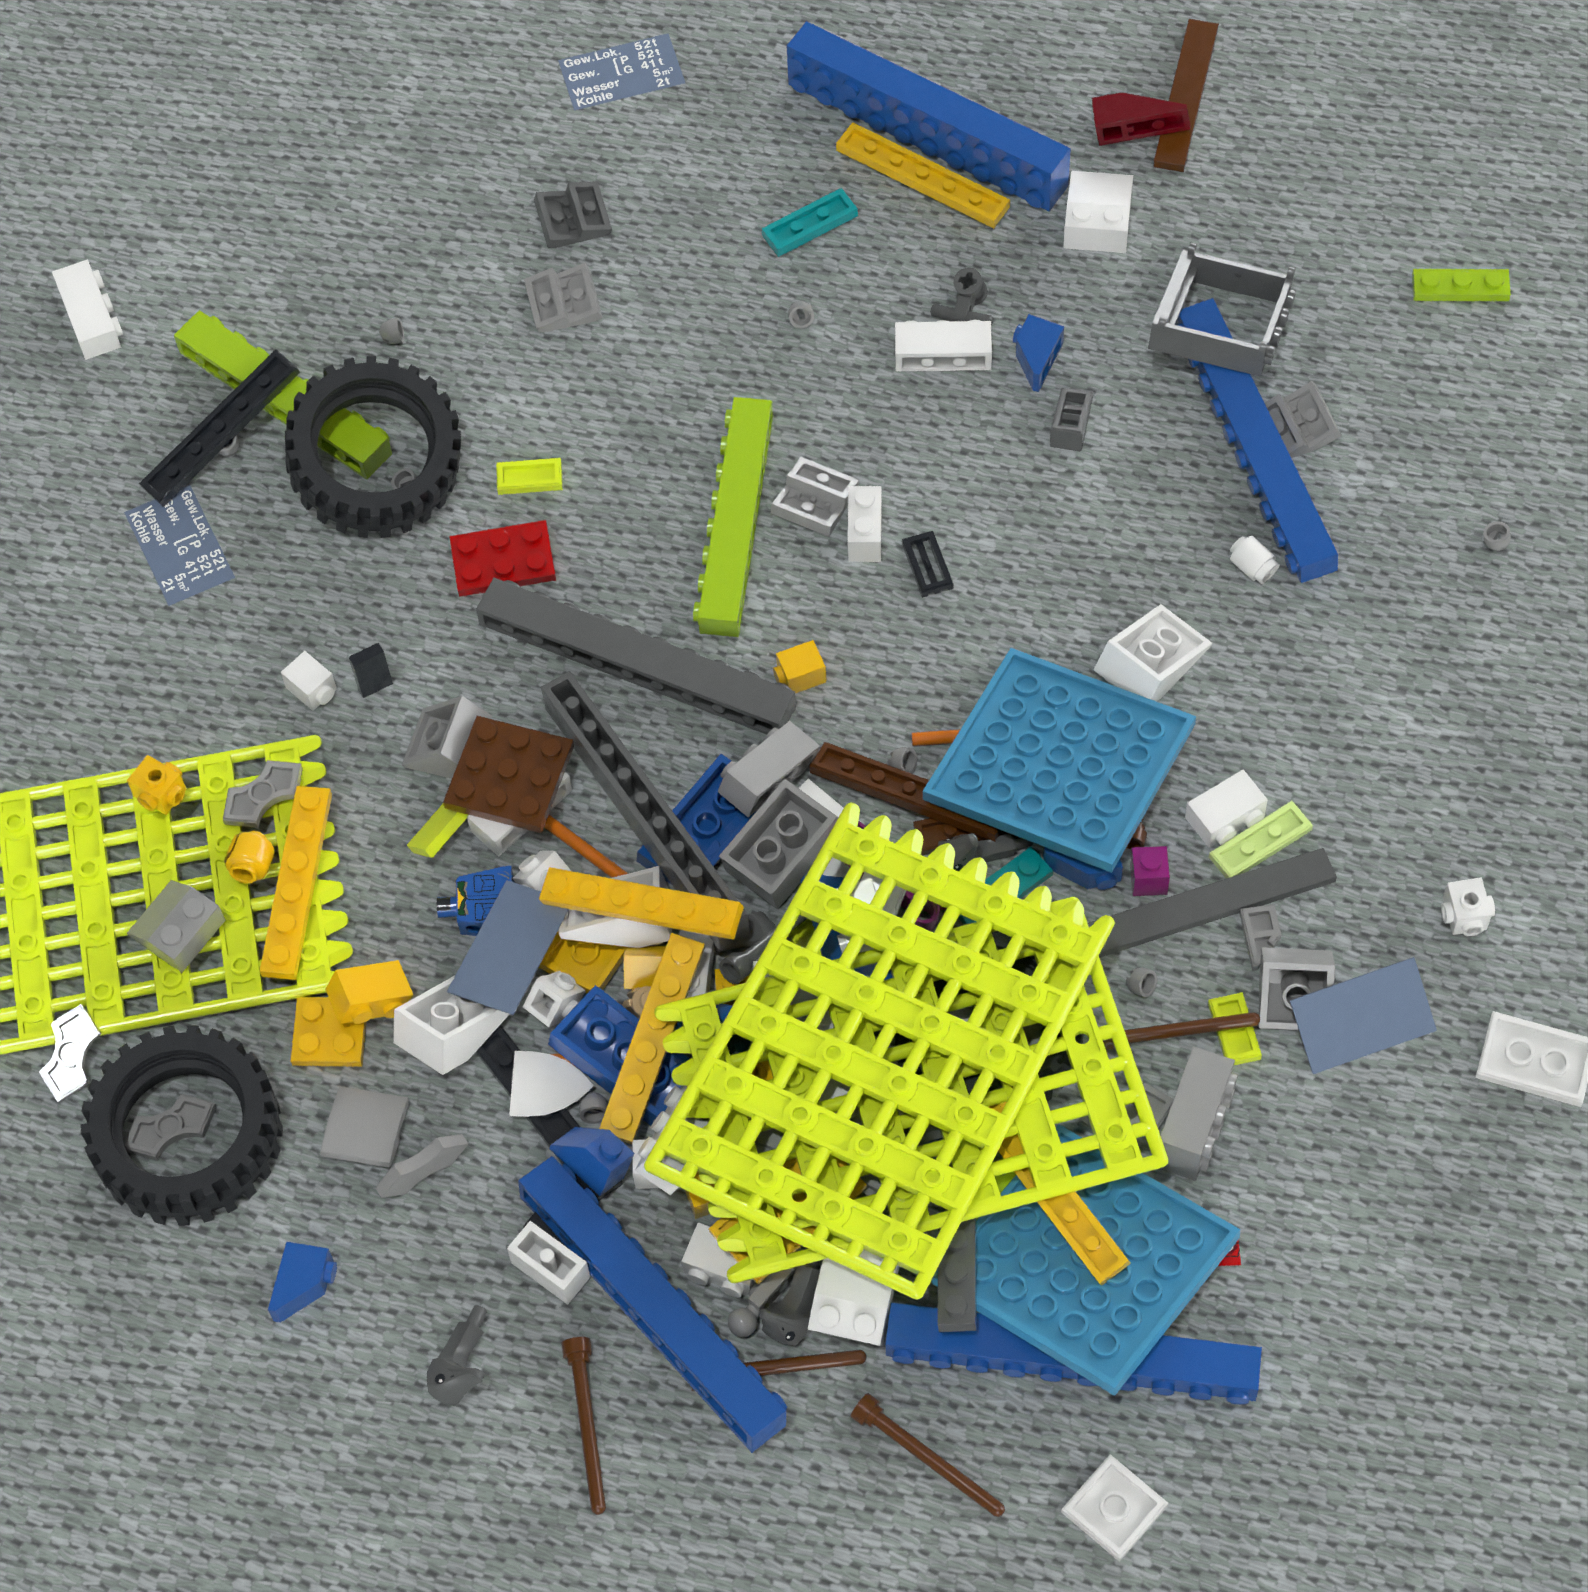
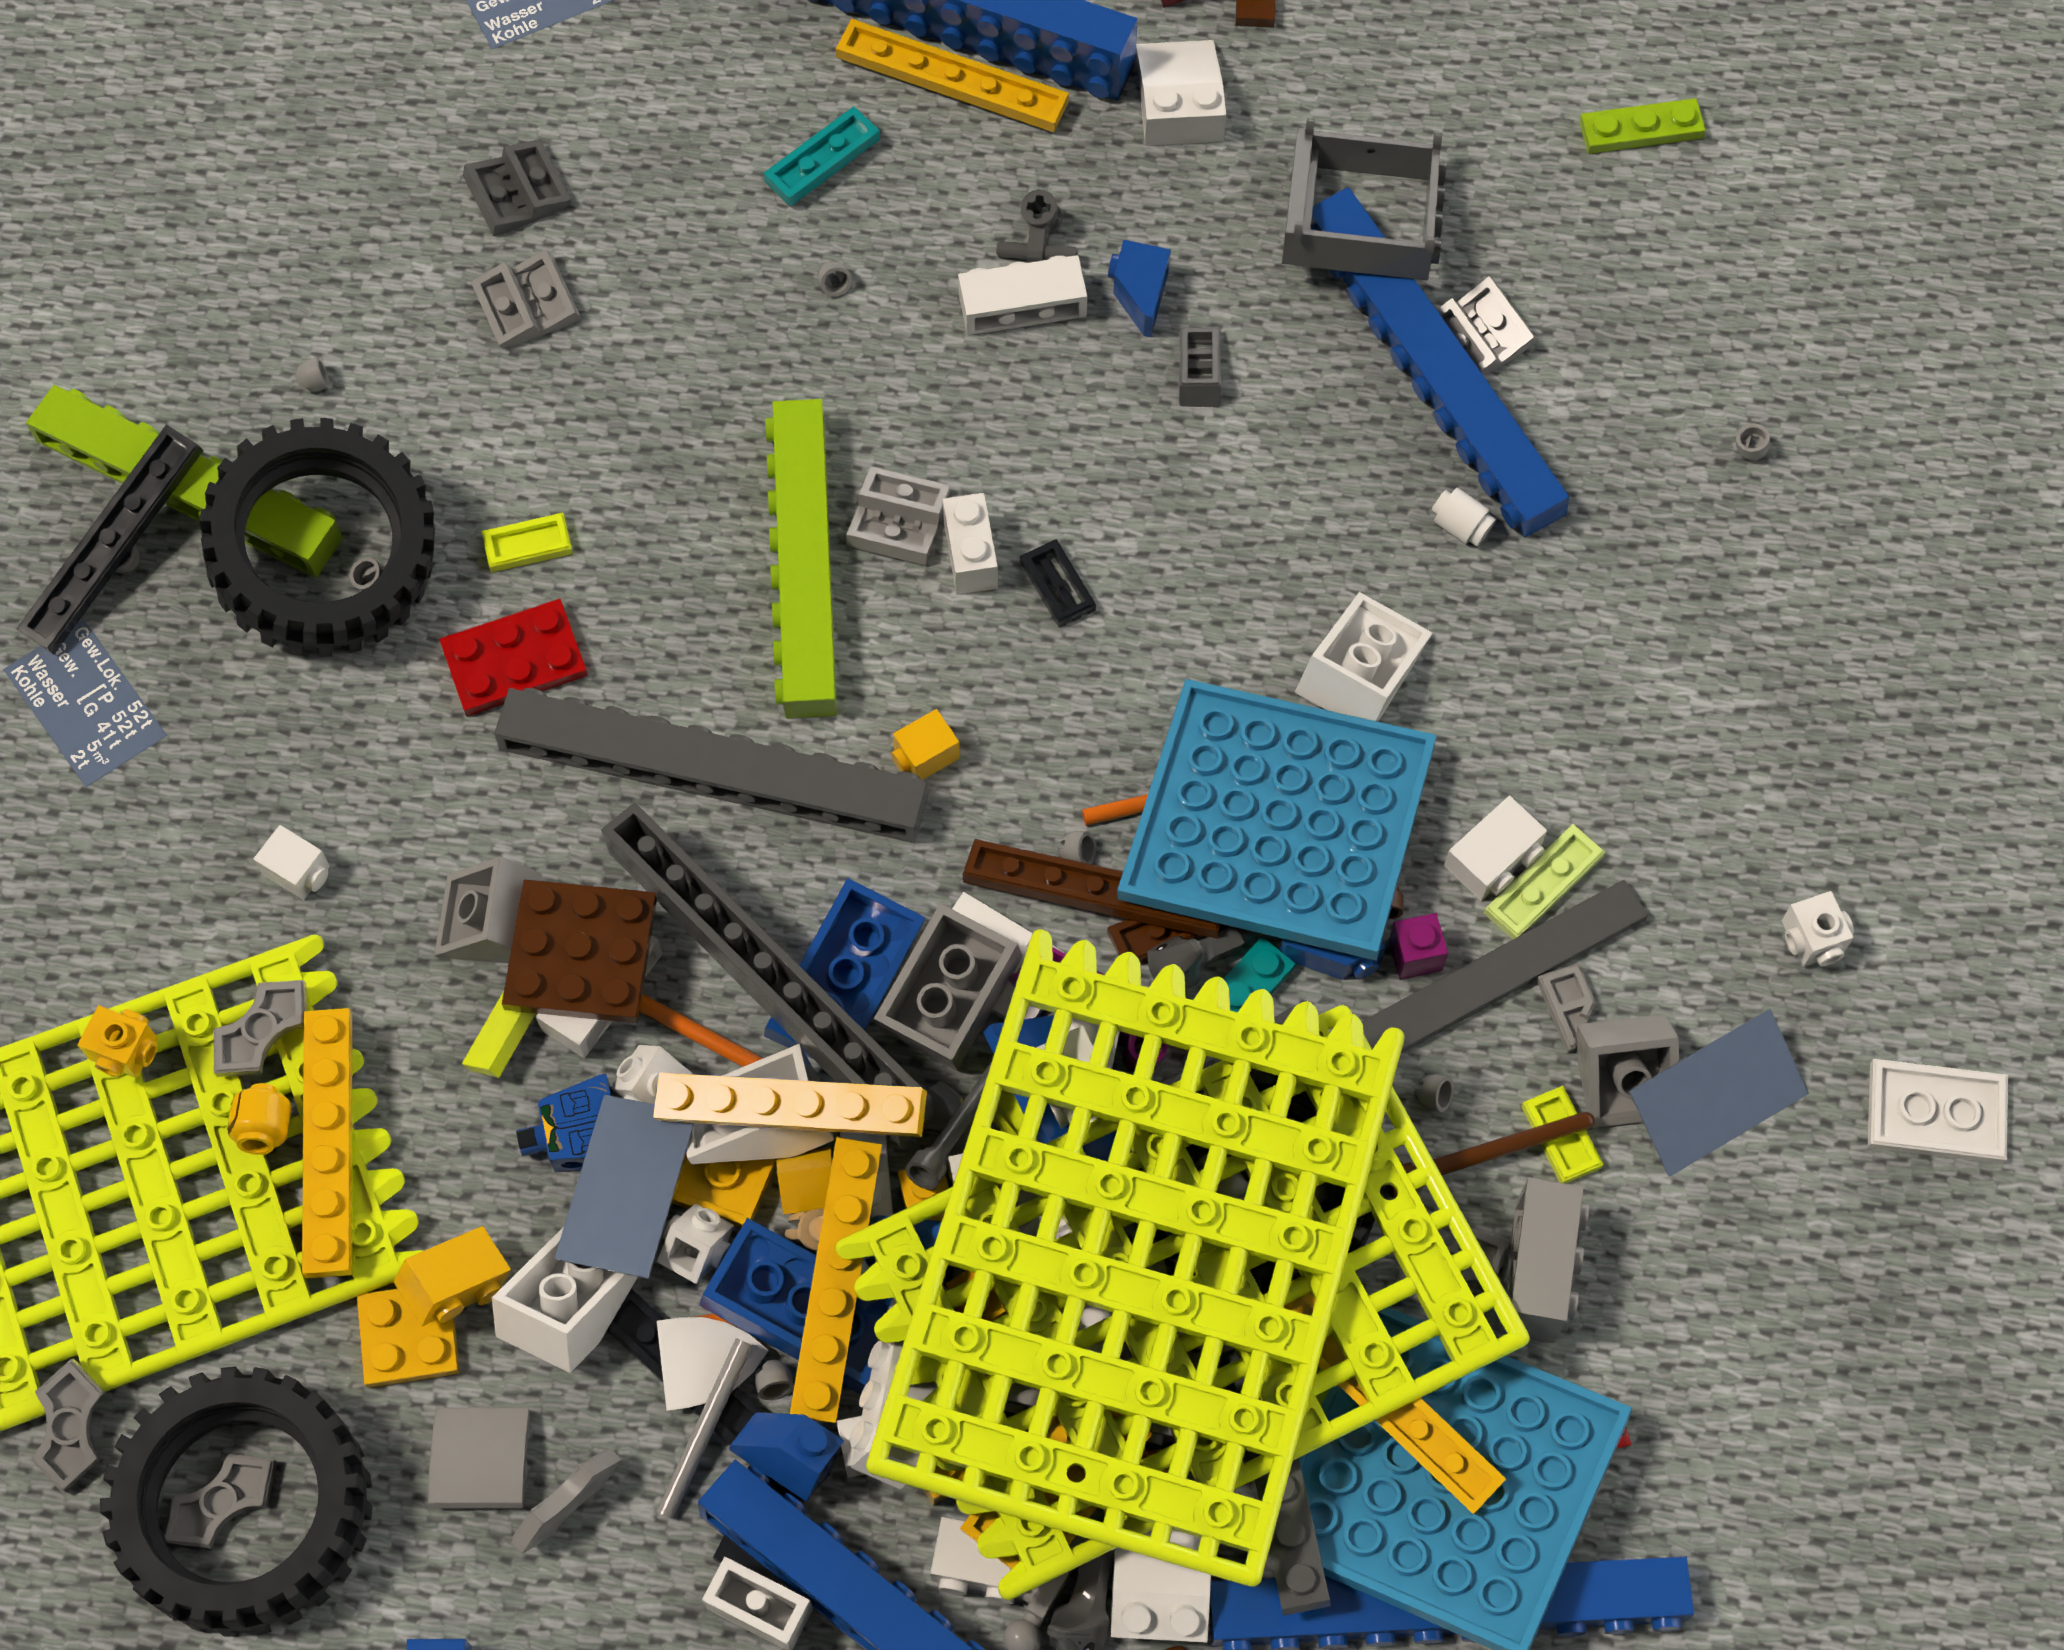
camera: 15 degrees left, 5 degrees up
(177, 924) = (179, 1227): light grey slope -> none
(370, 670) = (371, 837): black tile -> none
(534, 1132) = (704, 1428): none -> light grey bar
(763, 767) = (911, 888): light grey brick -> none

